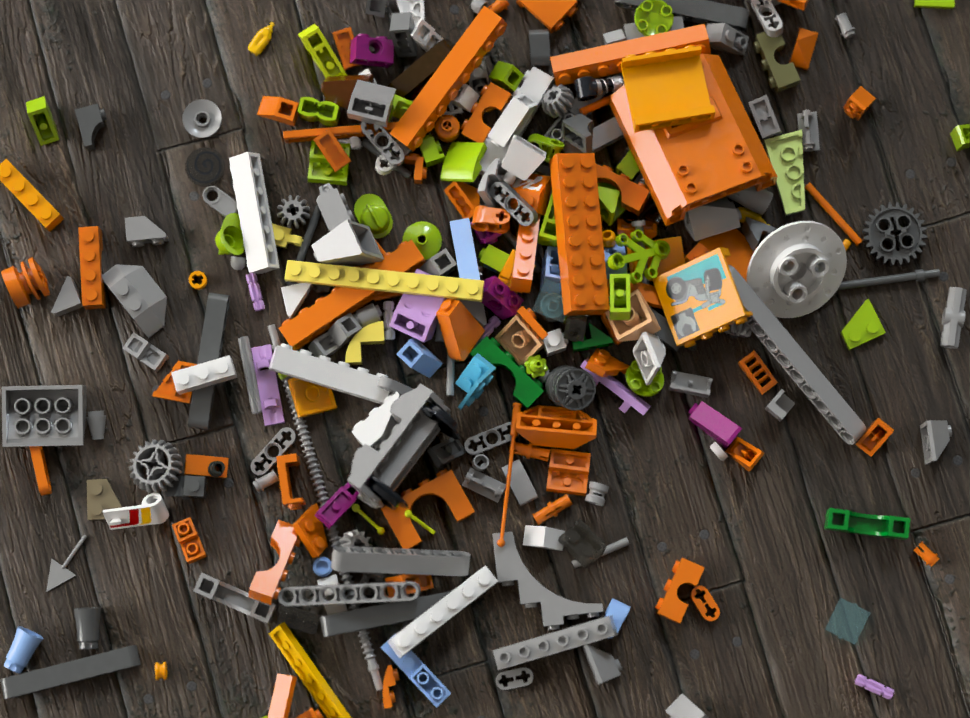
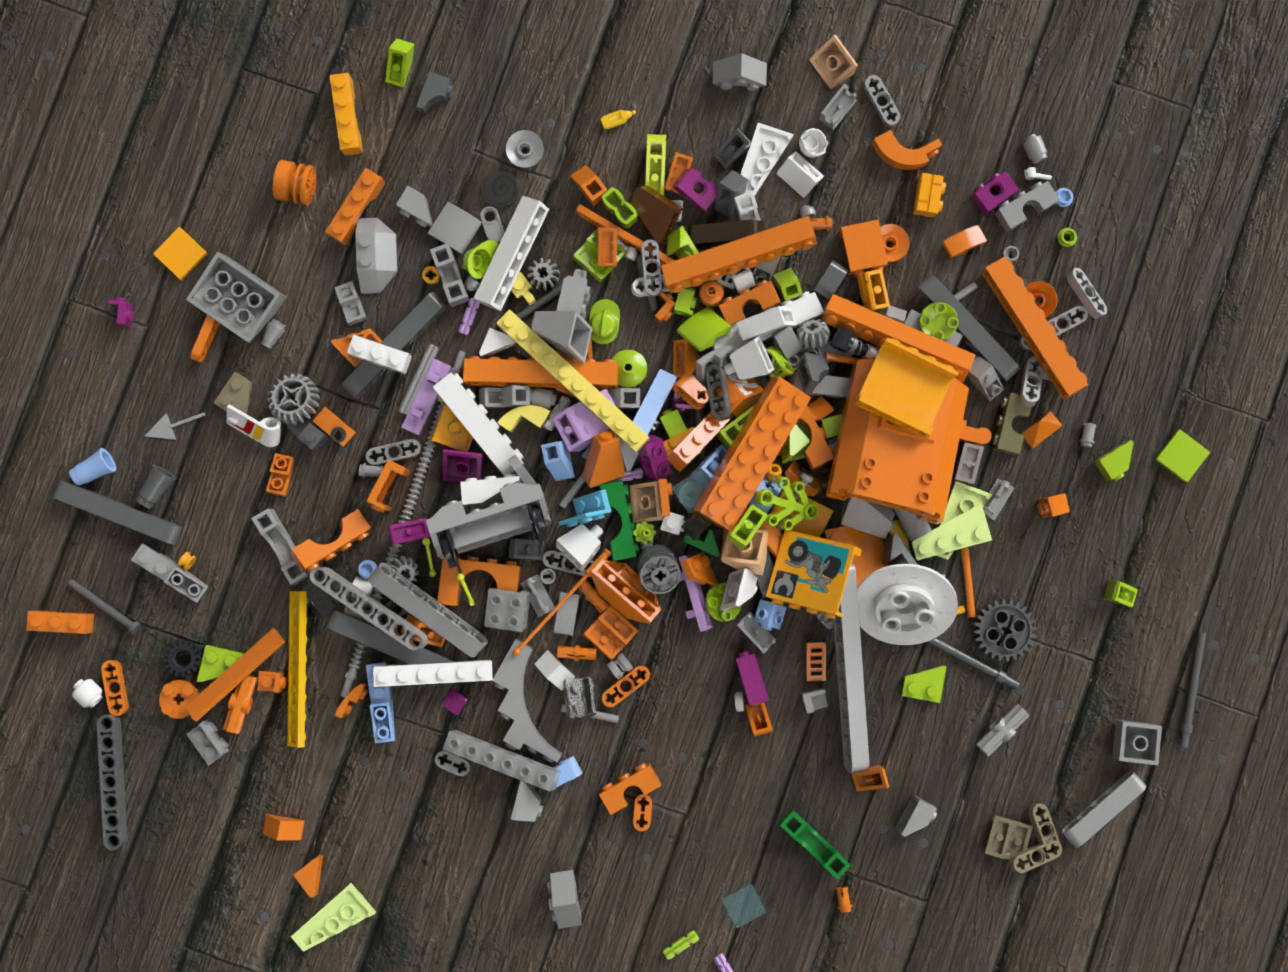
camera: 35 degrees right, 5 degrees up
(68, 298) = (320, 217): light grey slope -> none
(154, 690) = (170, 572): none -> light grey slope
(189, 226) = (454, 227): none -> light grey slope
(214, 268) = (450, 275): none -> light grey arch
(311, 531) = (377, 536): orange wing -> none
(340, 420) = (462, 465): none -> magenta slope
(371, 103) = (663, 230): light grey slope -> none
(467, 513) = (507, 609): none -> light grey bracket
(478, 625) = (455, 701): none -> magenta slope
(489, 415) = (580, 545): none -> white torso
(541, 123) = (787, 342): none -> light grey slope
(581, 30) = (873, 290): none -> light orange brick
(608, 158) = (821, 408): none -> orange slope
(612, 491) = (626, 678): none -> orange beam
(691, 360) = (769, 615): none -> light blue brick
(752, 91) = (973, 435): none -> orange leg
(797, 181) = (960, 532): none -> yellowish green wing
(819, 692) = (680, 945): none -> lime axle
(884, 31) = (1116, 461): none -> lime slope

